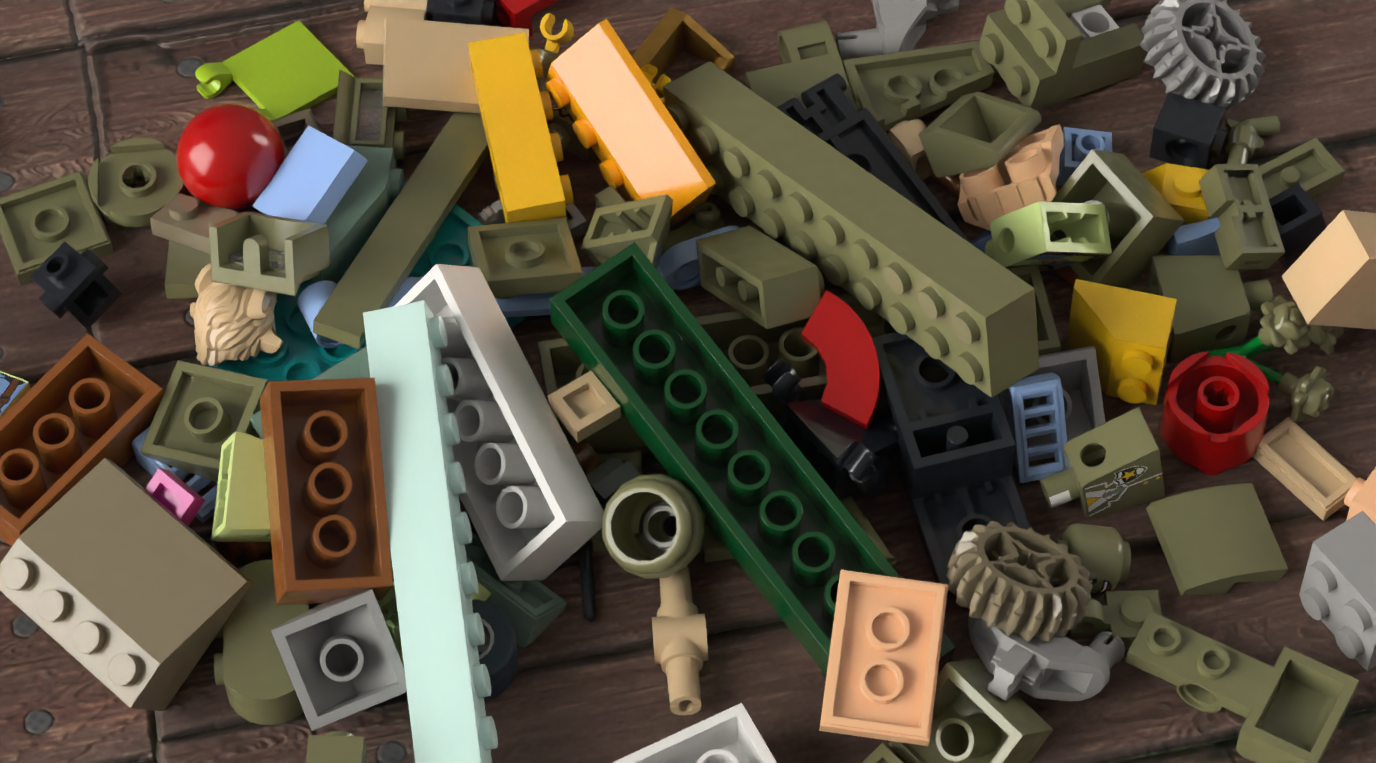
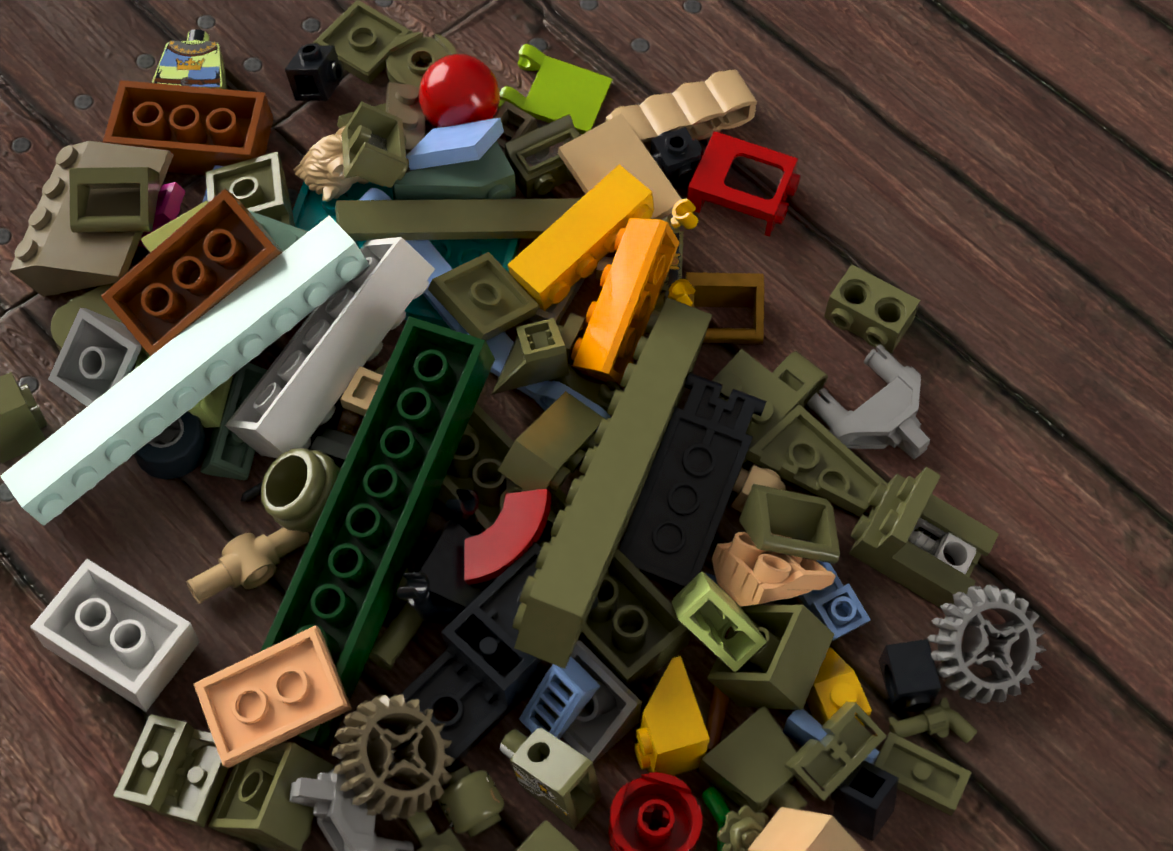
camera: 55 degrees right, 5 degrees up
(144, 486) = (84, 179): none -> olive tile

